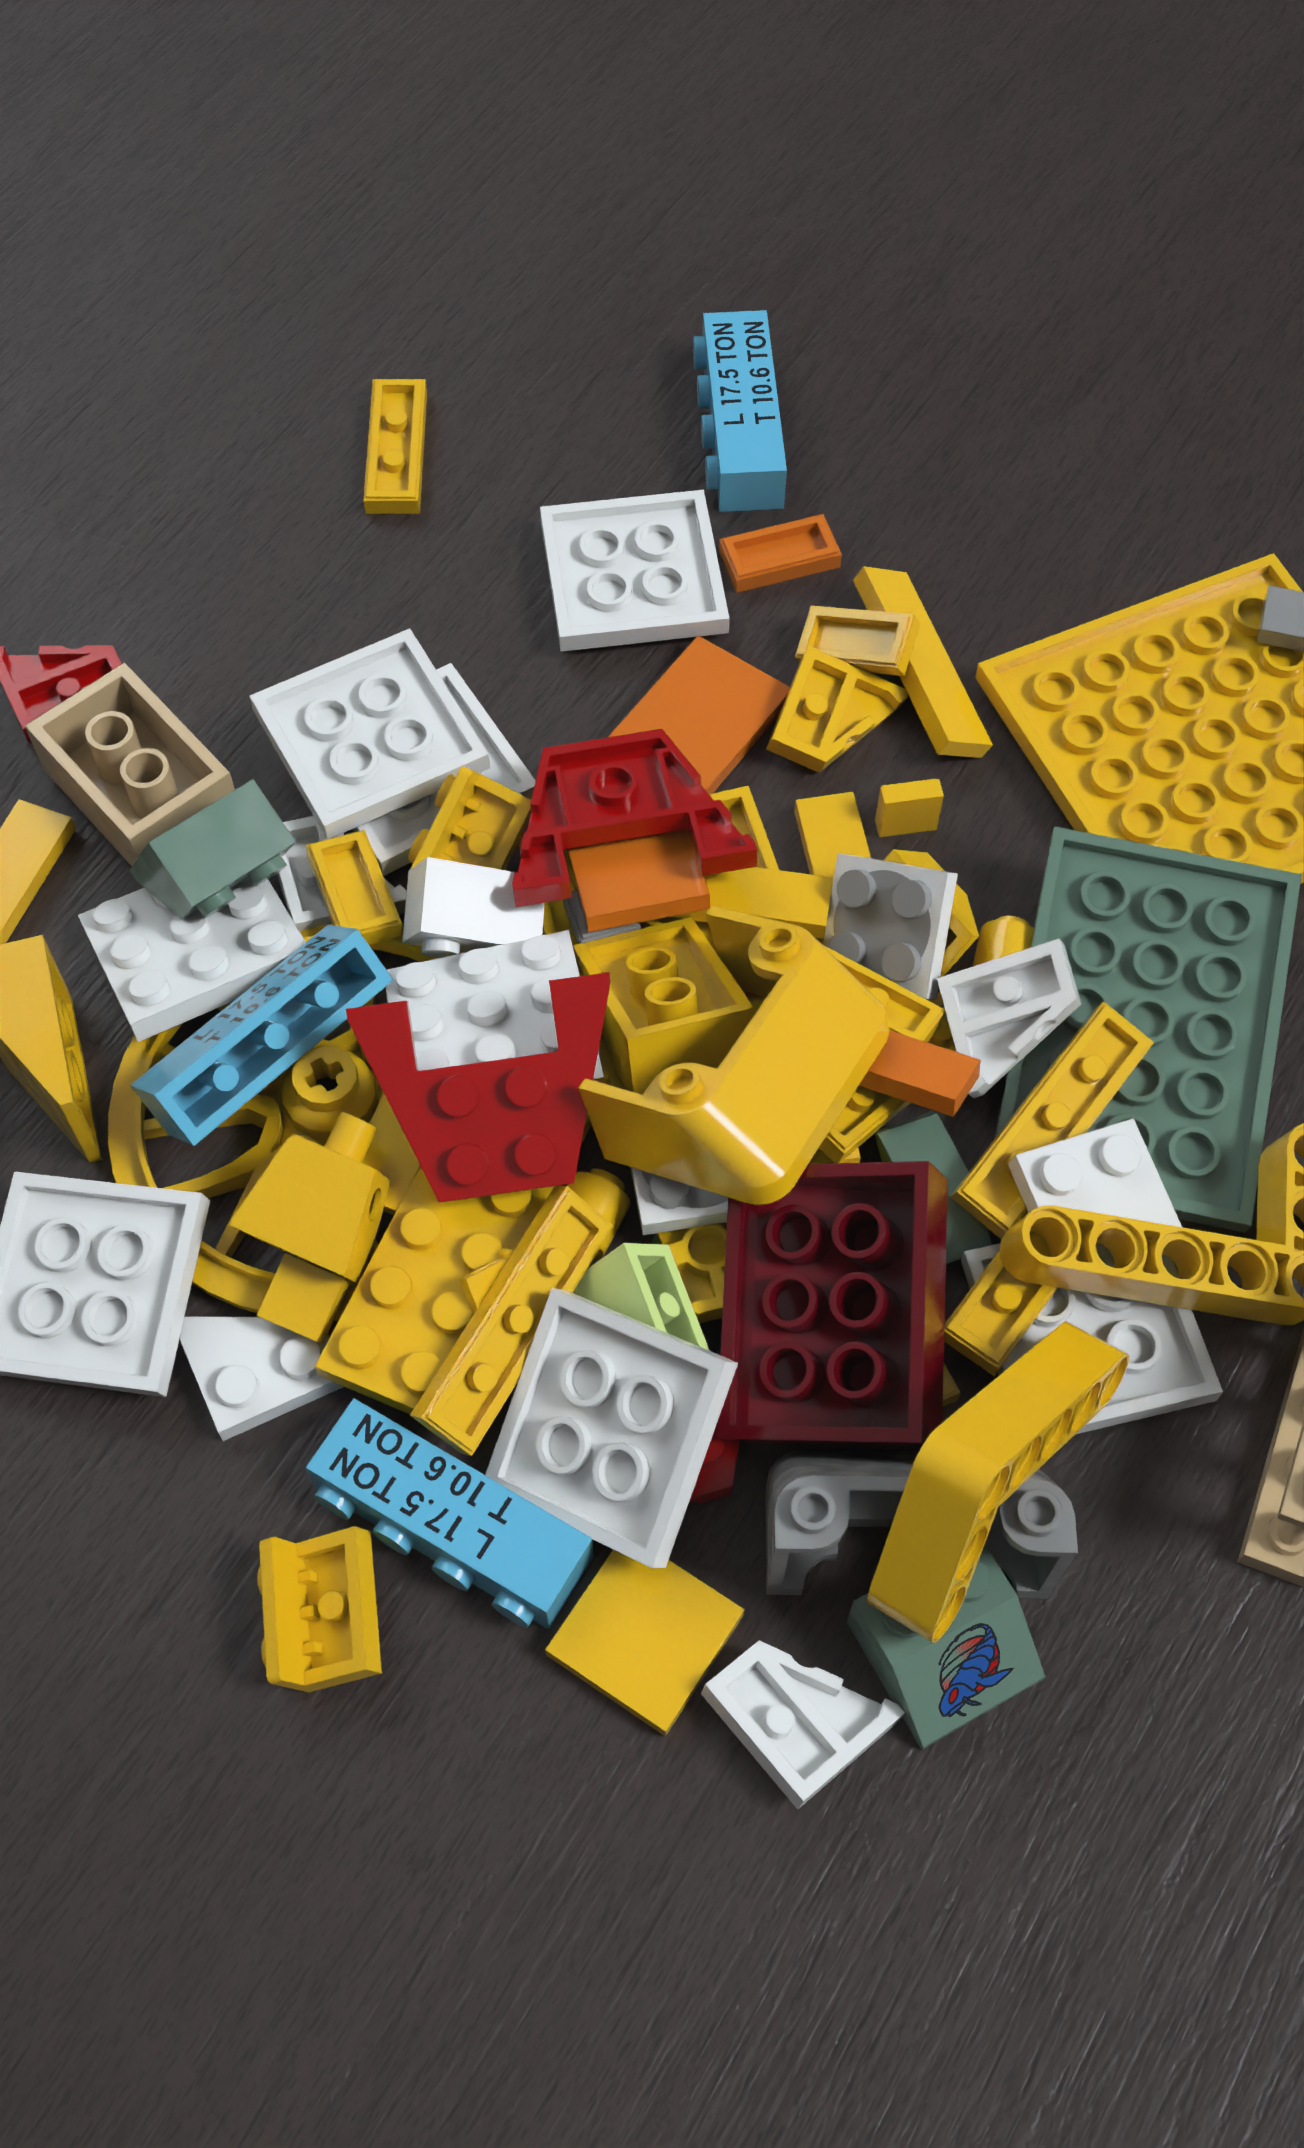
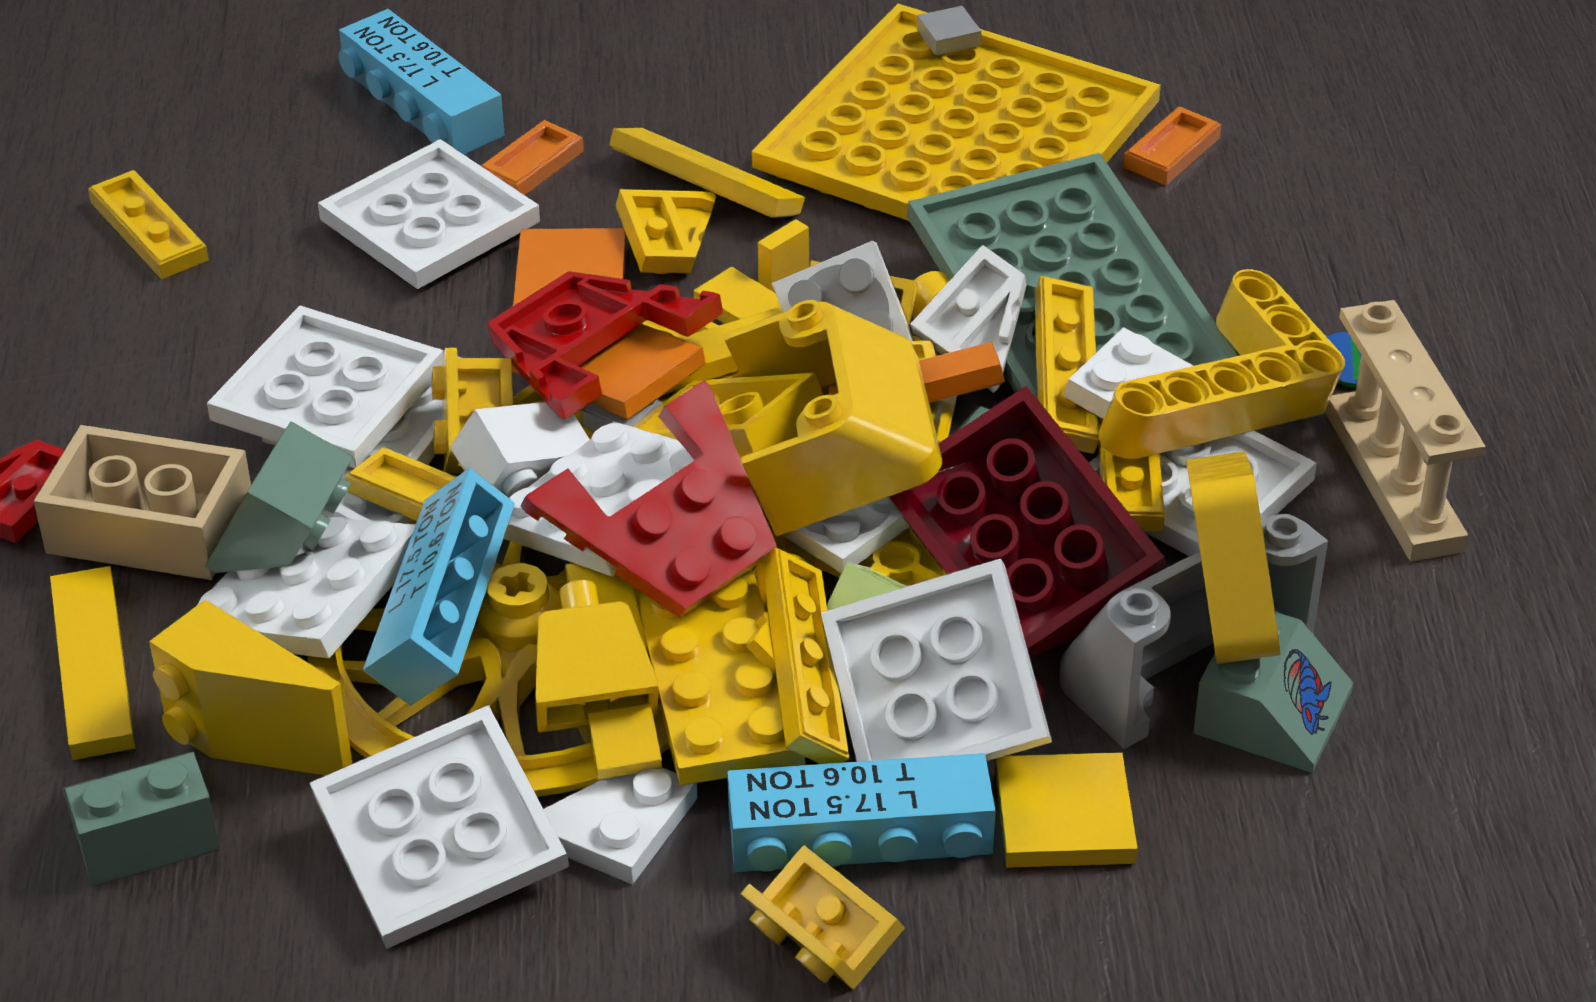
camera: 35 degrees left, 20 degrees down
(796, 1718) = (1214, 792): white wing -> none
(862, 638) = (662, 166): yellow tile -> none

